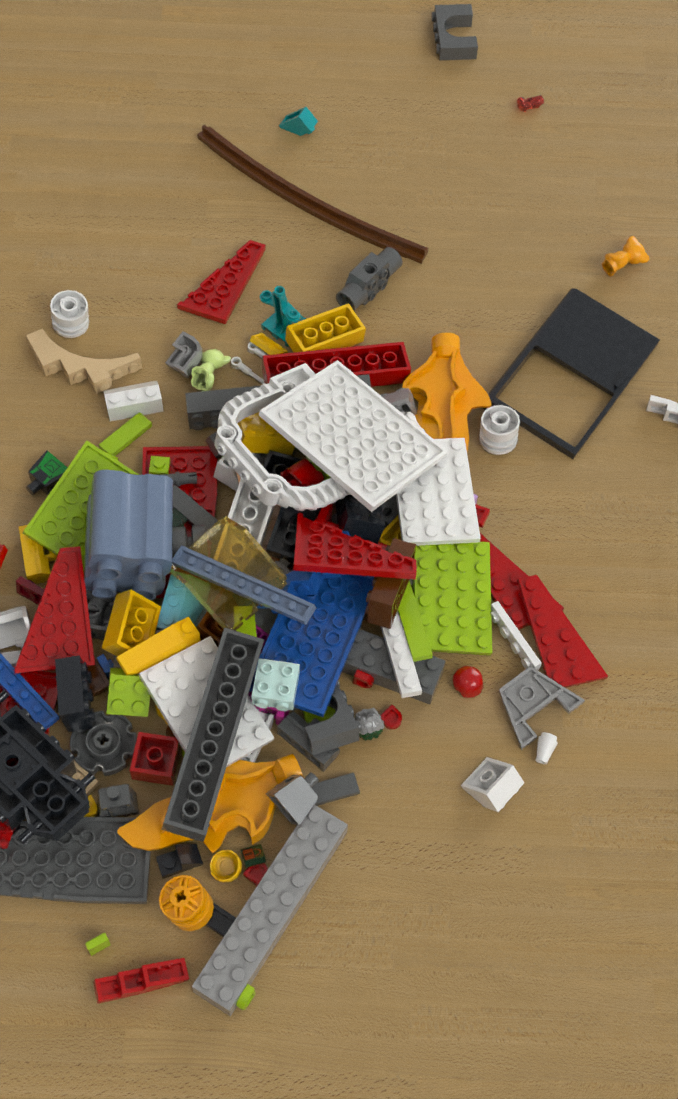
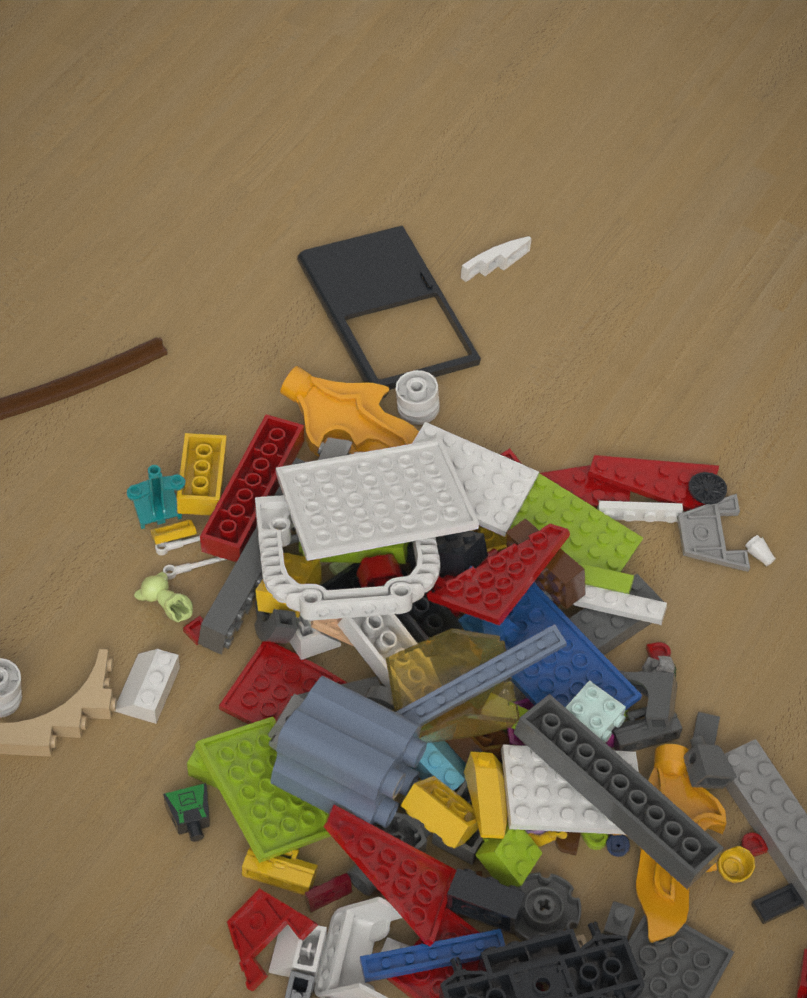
camera: 60 degrees left, 5 degrees down
(105, 664) = (459, 862): blue plate -> none
(126, 434) = (186, 715): lime tile -> none
(155, 758) = (591, 868): red brick -> none
(159, 465) = (256, 700): lime plate -> none
(180, 860) = (703, 906): black slope -> none
(183, 478) = (284, 691): dark grey pin -> none
(186, 354) = (135, 607): light grey brick -> none
(186, 903) = (759, 927): light orange wheel -> none
(224, 287) = (68, 535): red wing -> none
(253, 855) = (735, 836): tile -> none
(363, 679) = (610, 651): red tile -> none
(369, 278) = (163, 402): dark grey brick -> none
(468, 681) = (659, 572): red hair -> none
(493, 783) = (772, 608): white slope -> none
(529, 103) = (46, 157): clear red arm -> none
(572, 675) = (707, 488): none -> black wheel
(632, 253) = (294, 189): light orange animal -> none

